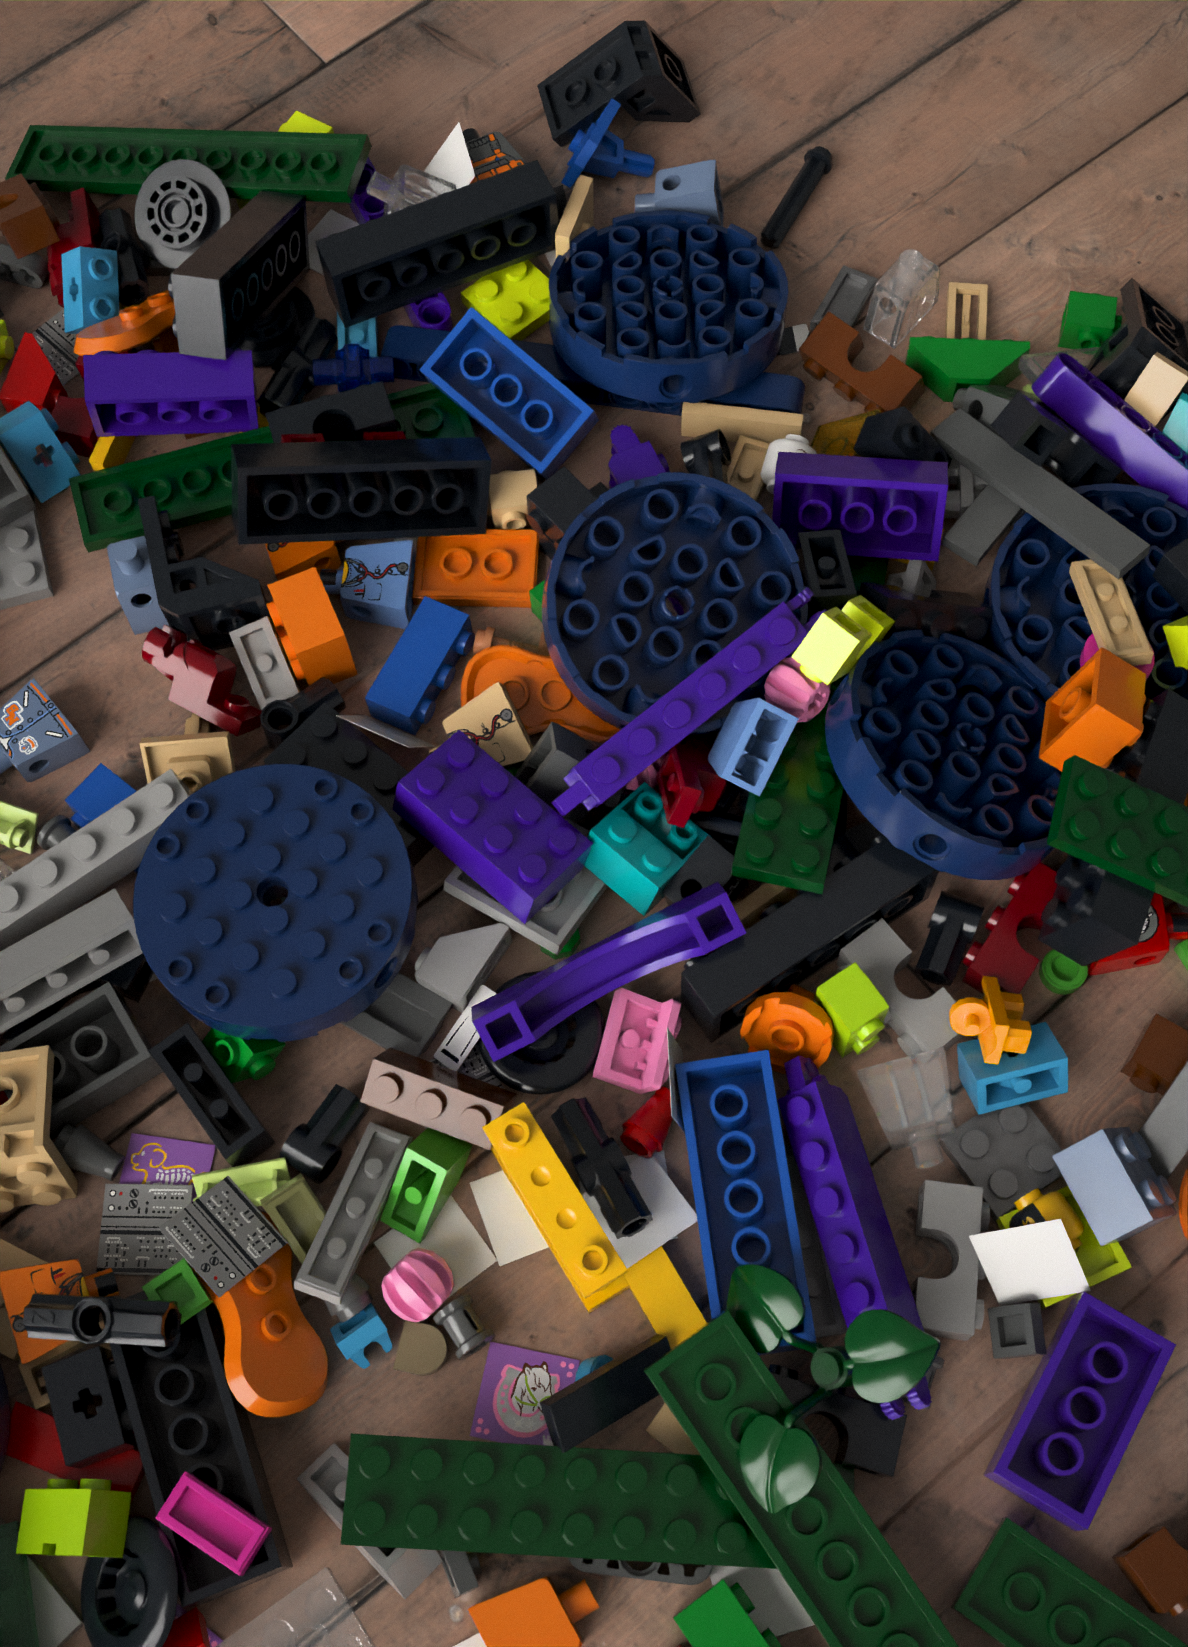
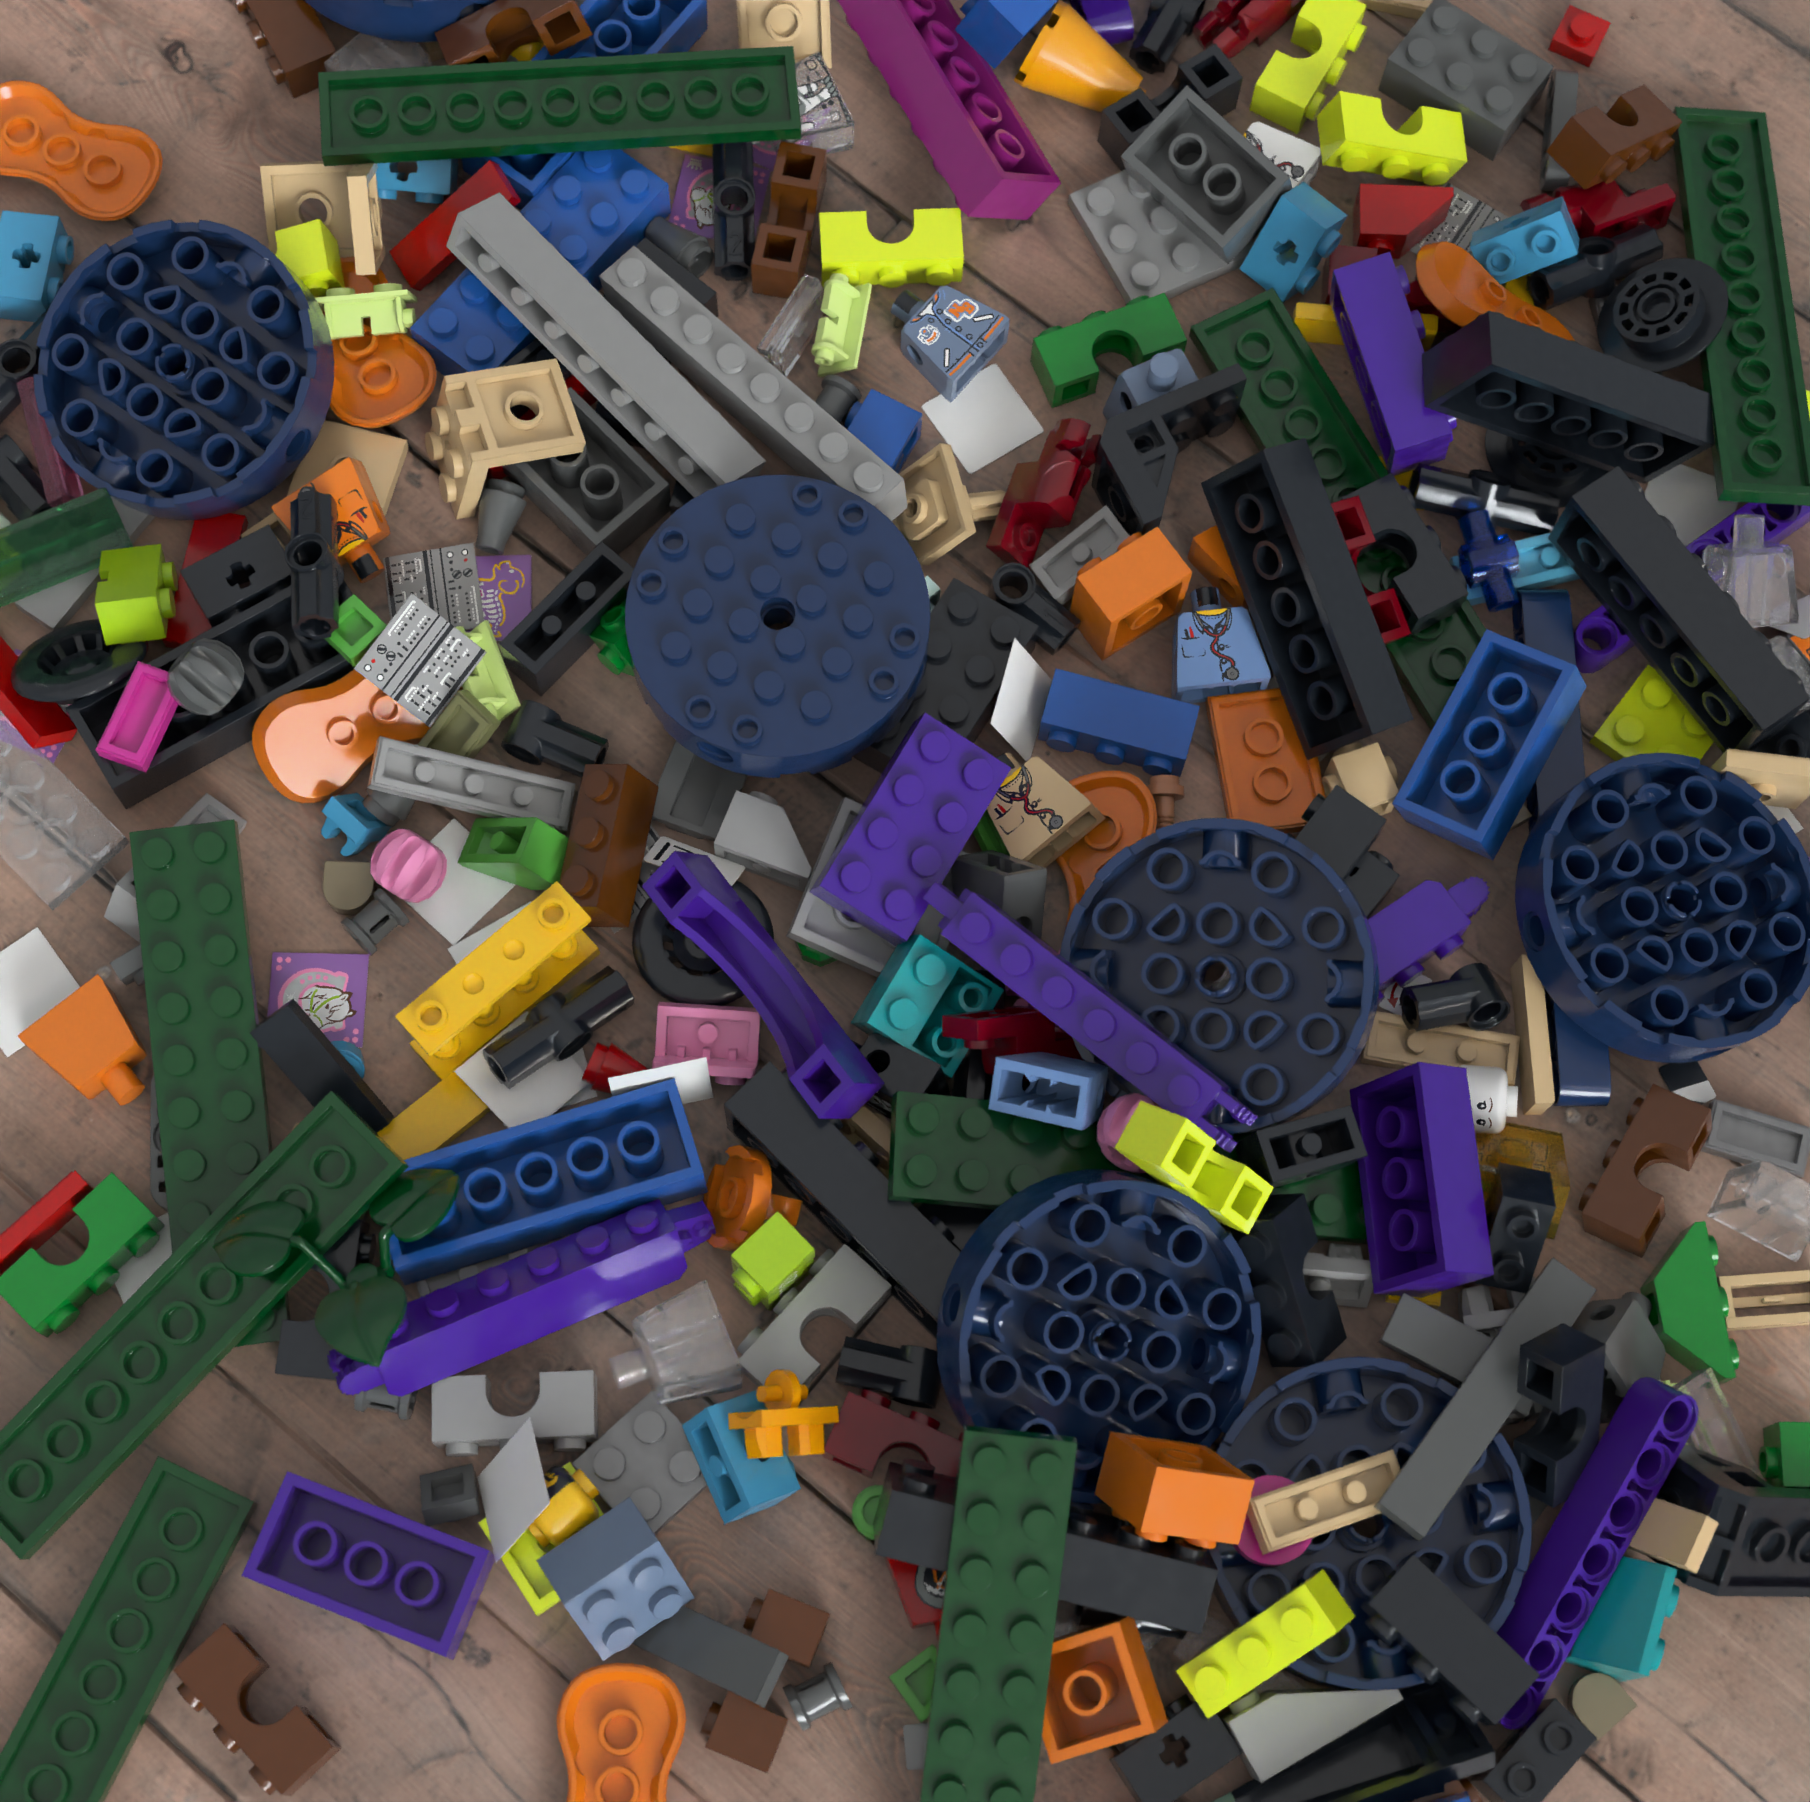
camera: 70 degrees right, 5 degrees up
(76, 584) = (1137, 331): none -> green arch
(112, 726) = (983, 419): none -> white sticker
(194, 1444) = (205, 677): none -> dark grey piece

